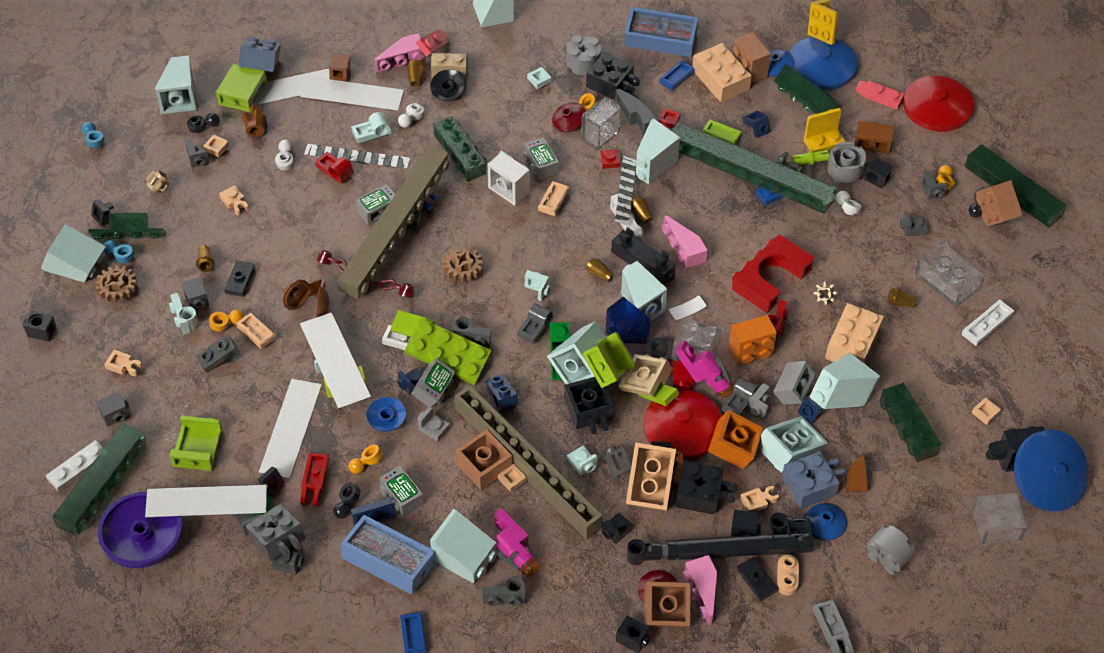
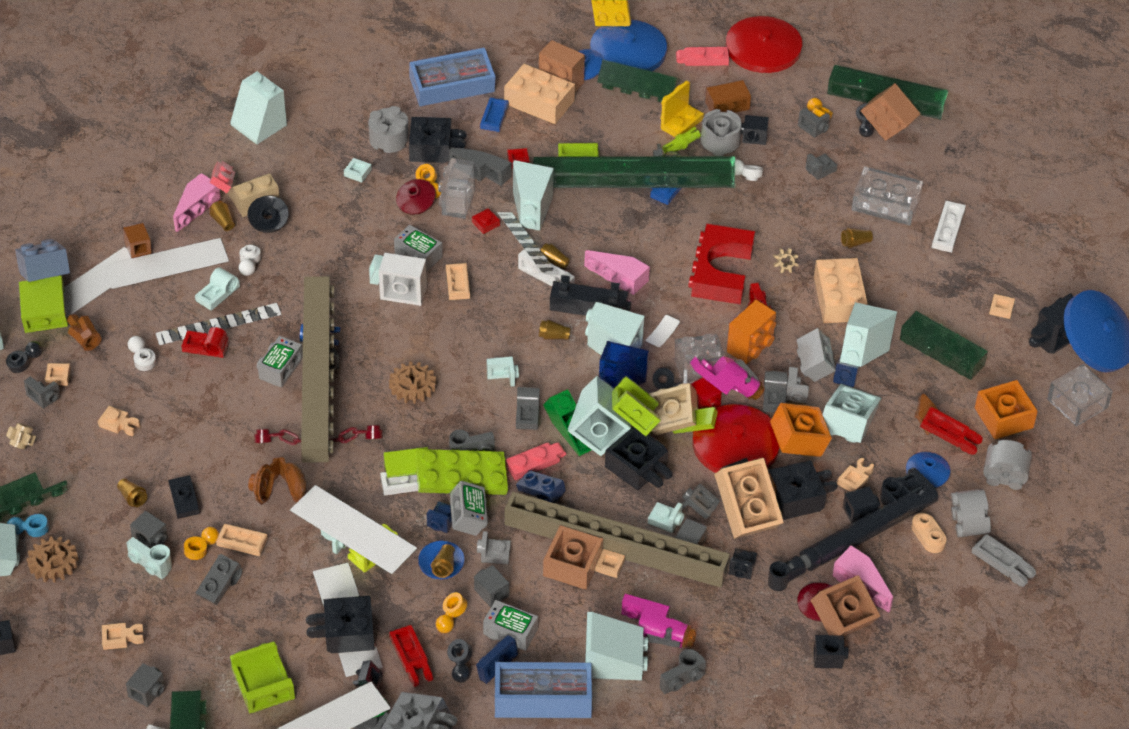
camera: 30 degrees left, 5 degrees down
(281, 431) = (344, 624): none -> black hinge
(381, 417) = (443, 563): none -> pearl gold cone
(409, 452) = (491, 585): none -> dark grey brick
(460, 148) = (309, 262): clear green brick -> none
(514, 367) = (534, 459): none -> coral hinge
(589, 486) = (692, 532): none -> dark grey brick
(757, 579) = (904, 549): black plate -> none
(758, 122) = (607, 126): dark blue bracket -> none
(812, 479) = (892, 436): sand blue hinge -> none
(829, 575) = (970, 513): none -> light grey brick
(863, 496) = (951, 430): none -> red hinge
(923, 501) = (1005, 409): none -> orange brick

